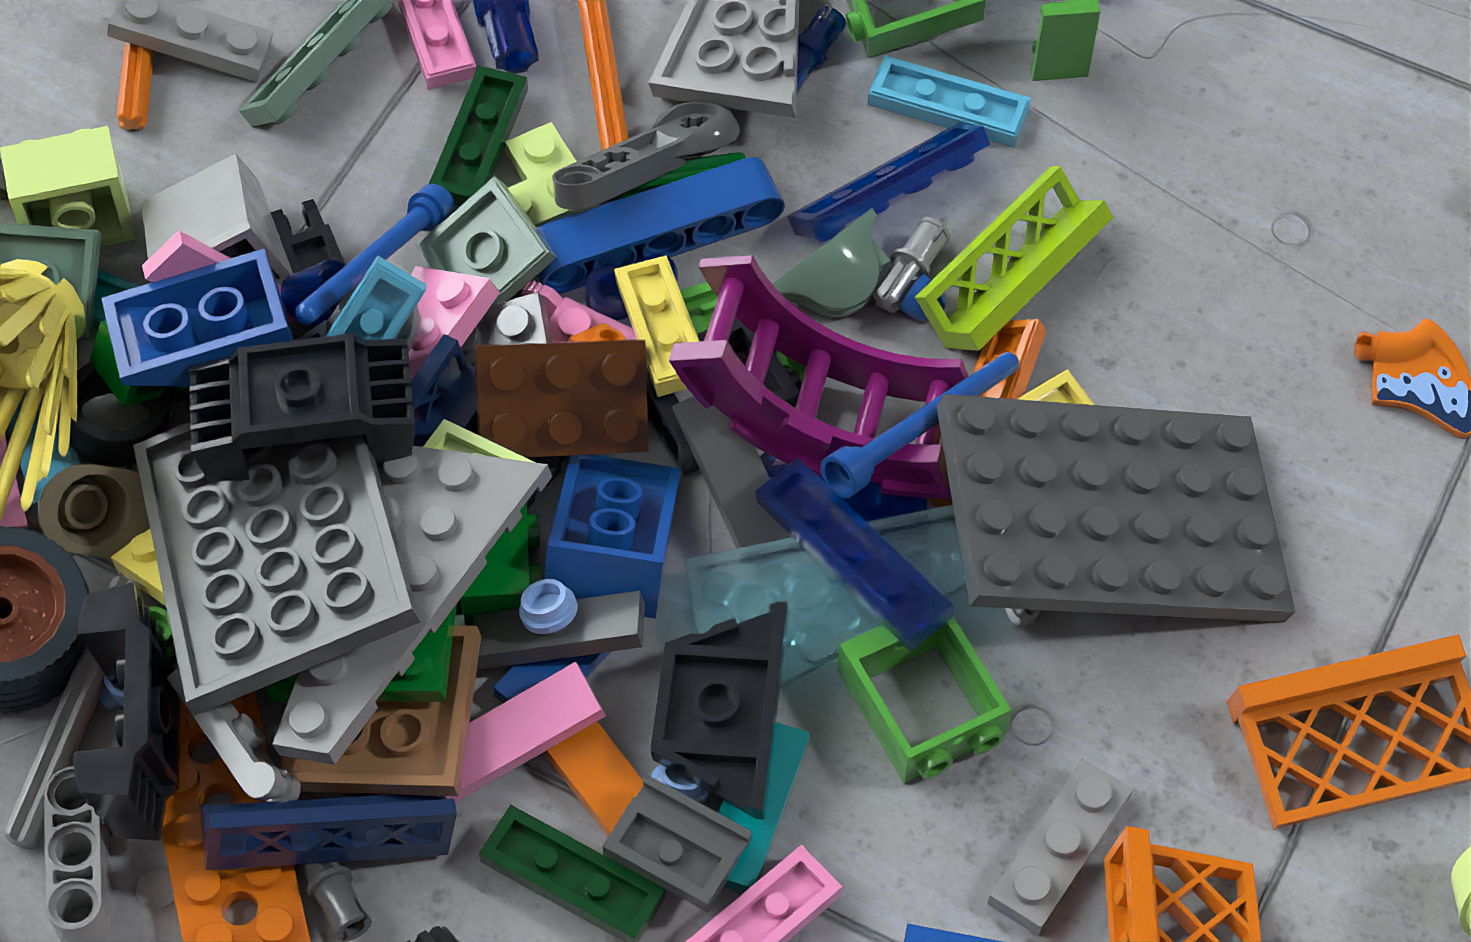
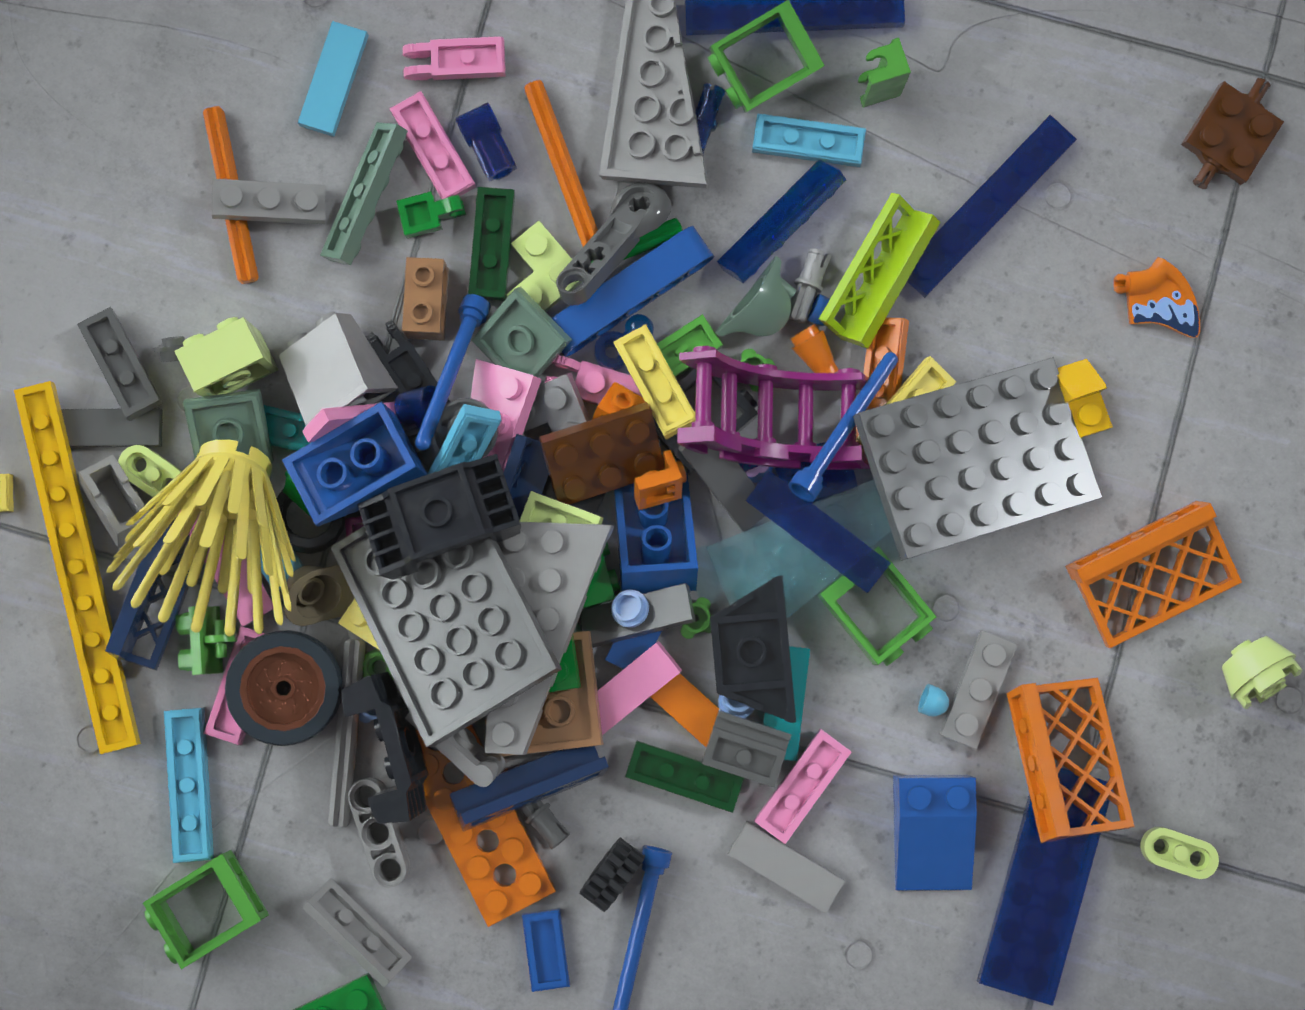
camera: 10 degrees left, 25 degrees up
(366, 179) = (425, 298): none -> medium nougat brick
(396, 86) = (423, 213): none -> green plate
(635, 458) = (660, 486): none -> orange bracket
(635, 672) = (700, 608): none -> bright green plate
(898, 331) = (814, 349): none -> orange cone
(987, 845) = (933, 701): none -> medium azure hinge
(1186, 221) = (990, 204): none -> clear blue plate
(1288, 471) = (1082, 391): none -> yellow slope

